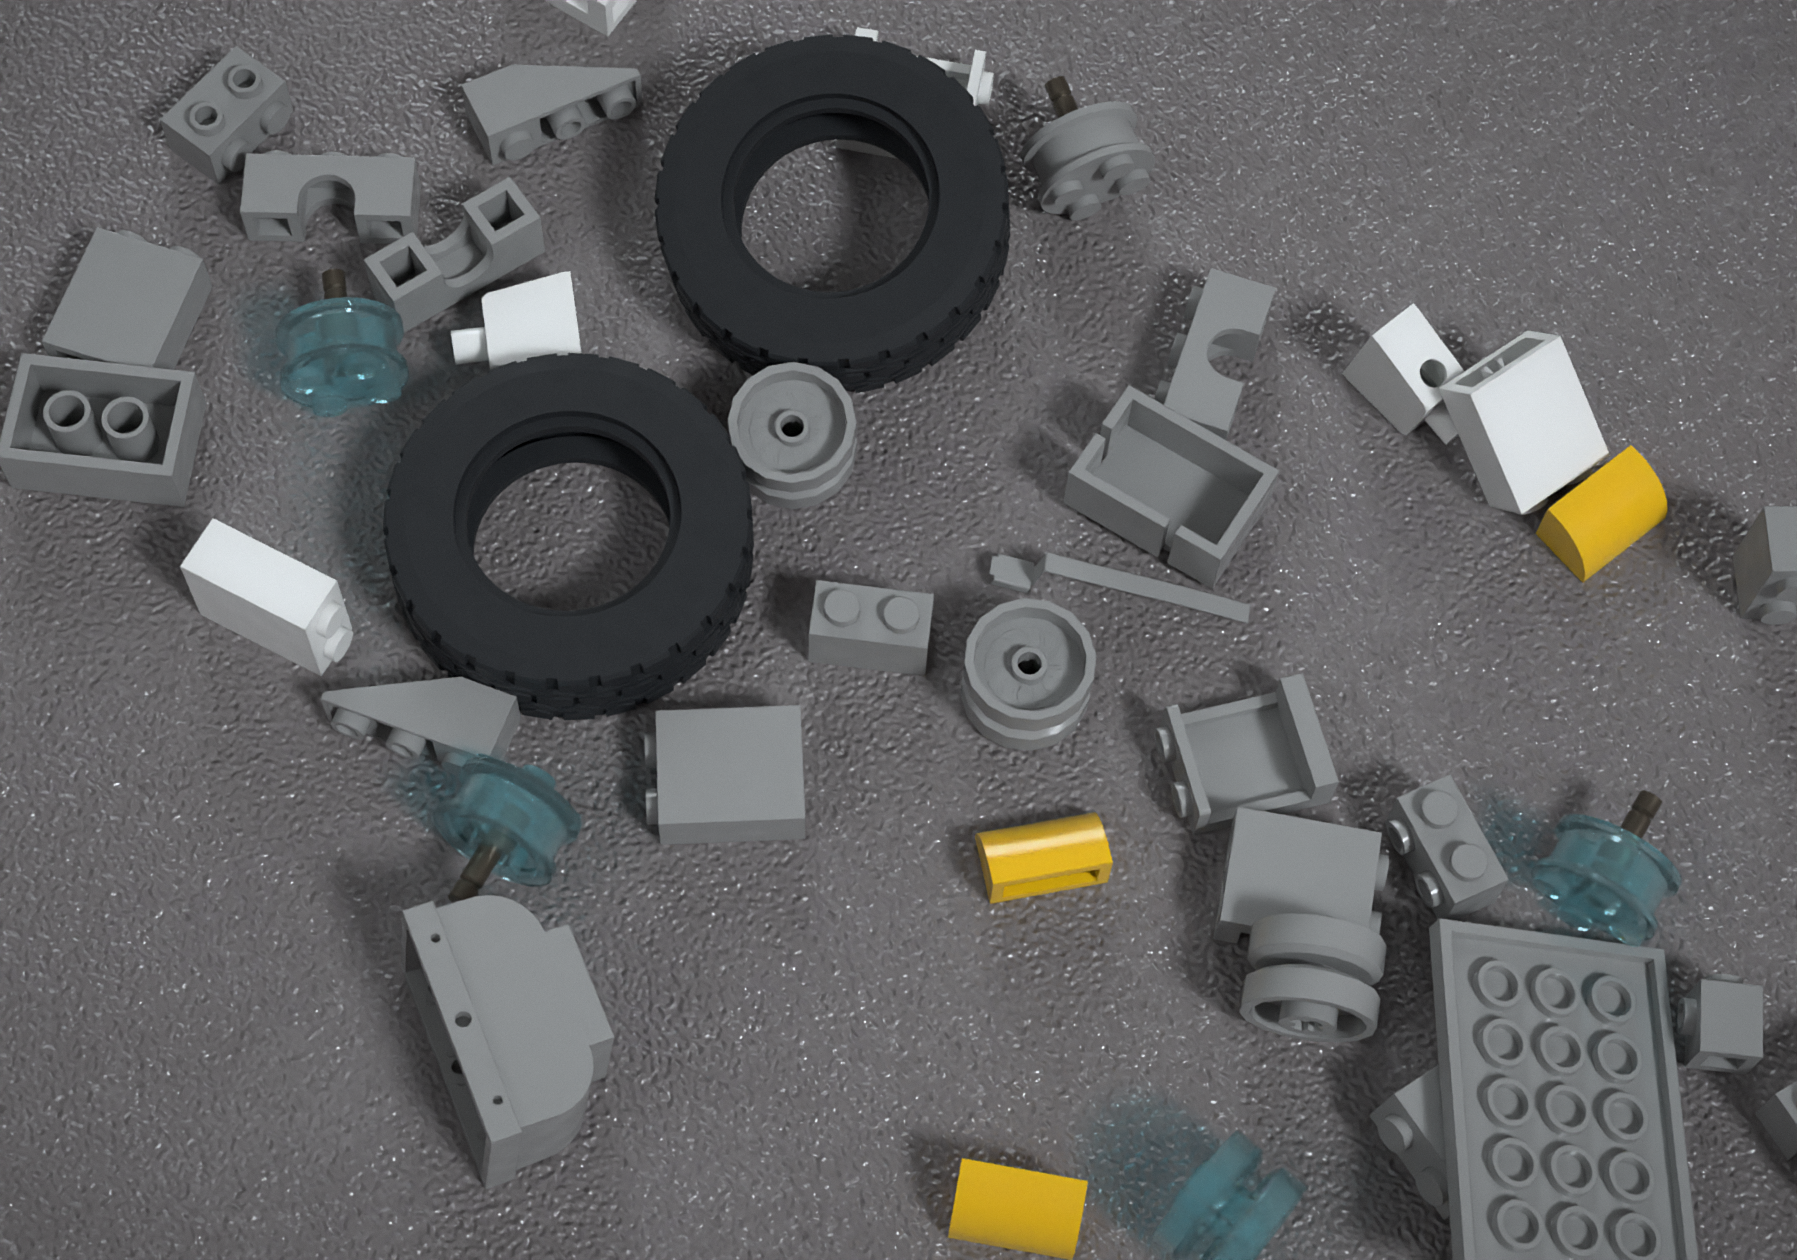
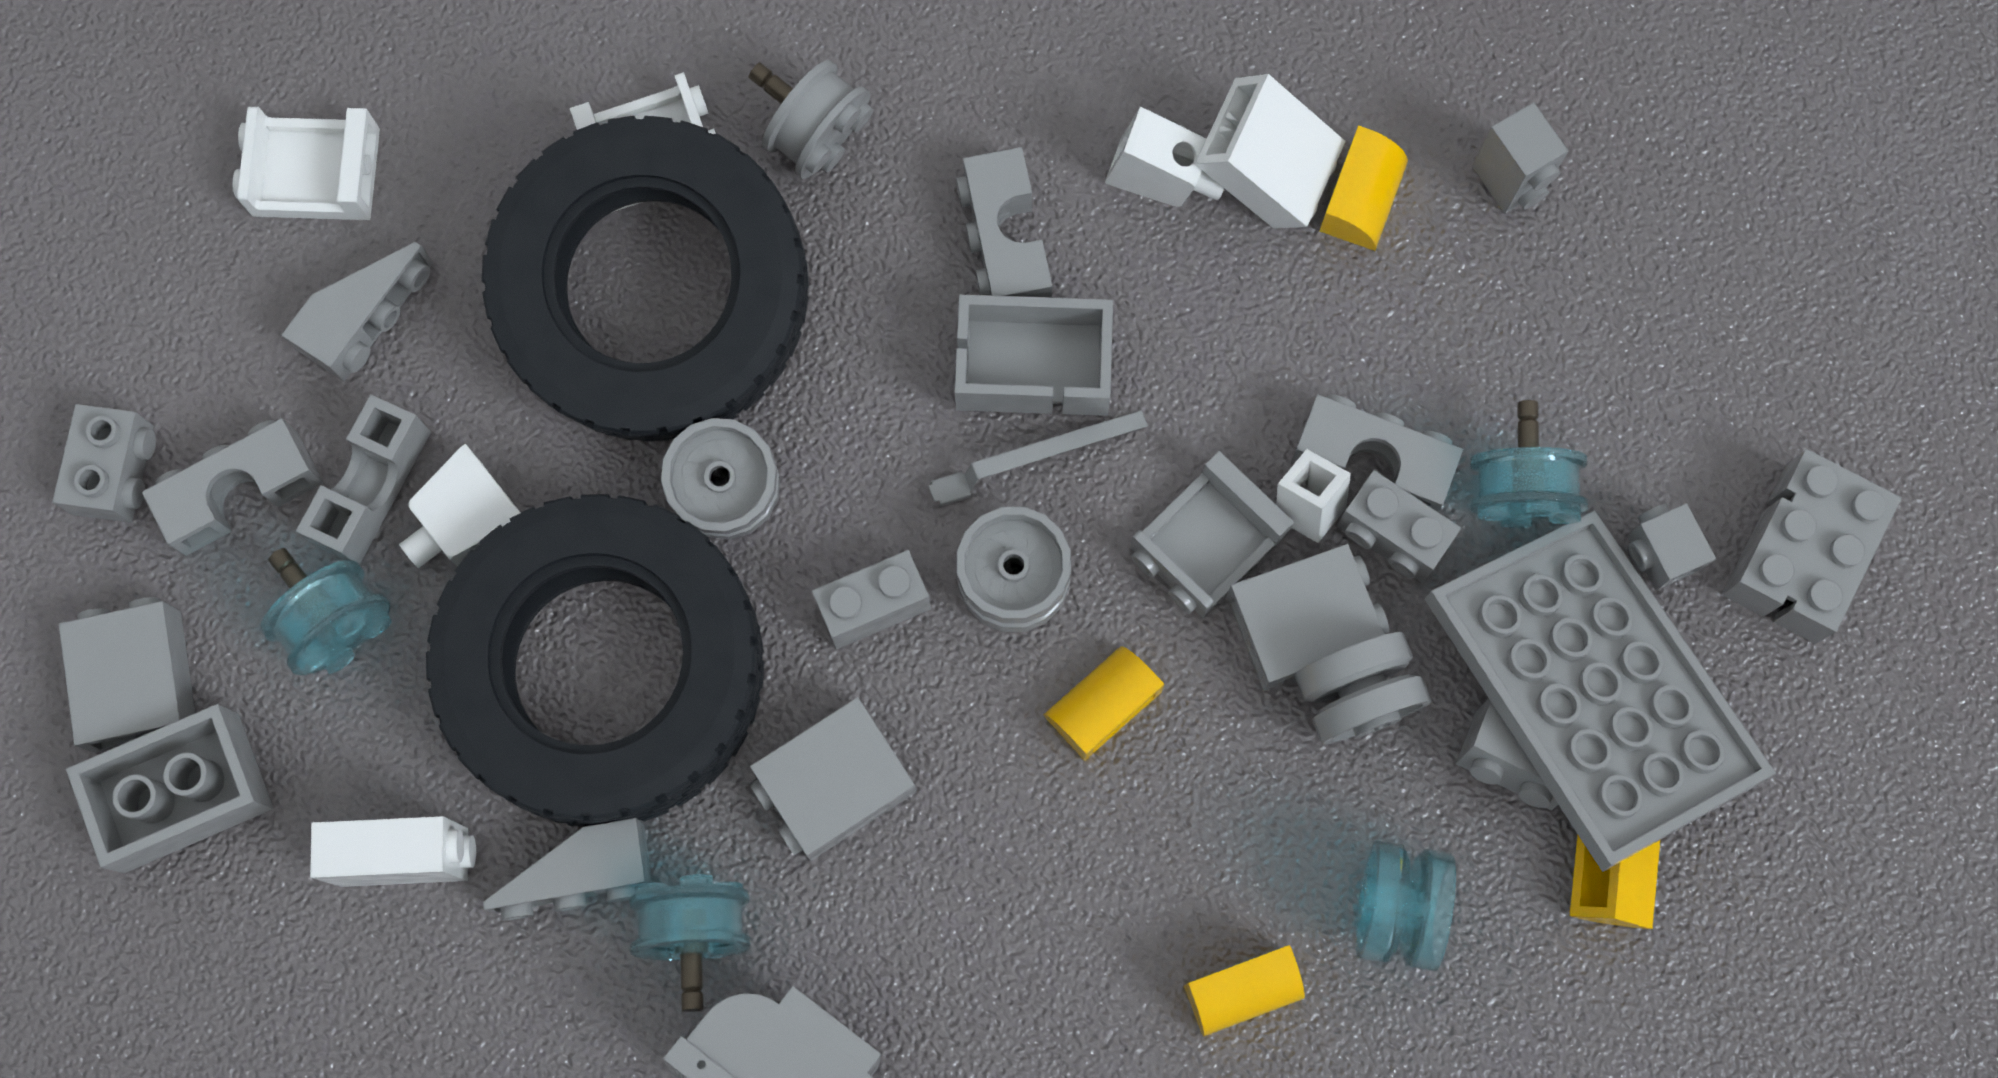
camera: 25 degrees left, 10 degrees up
(1374, 768) = (1313, 494): none -> white brick
(1439, 729) = (1418, 461): none -> light grey arch

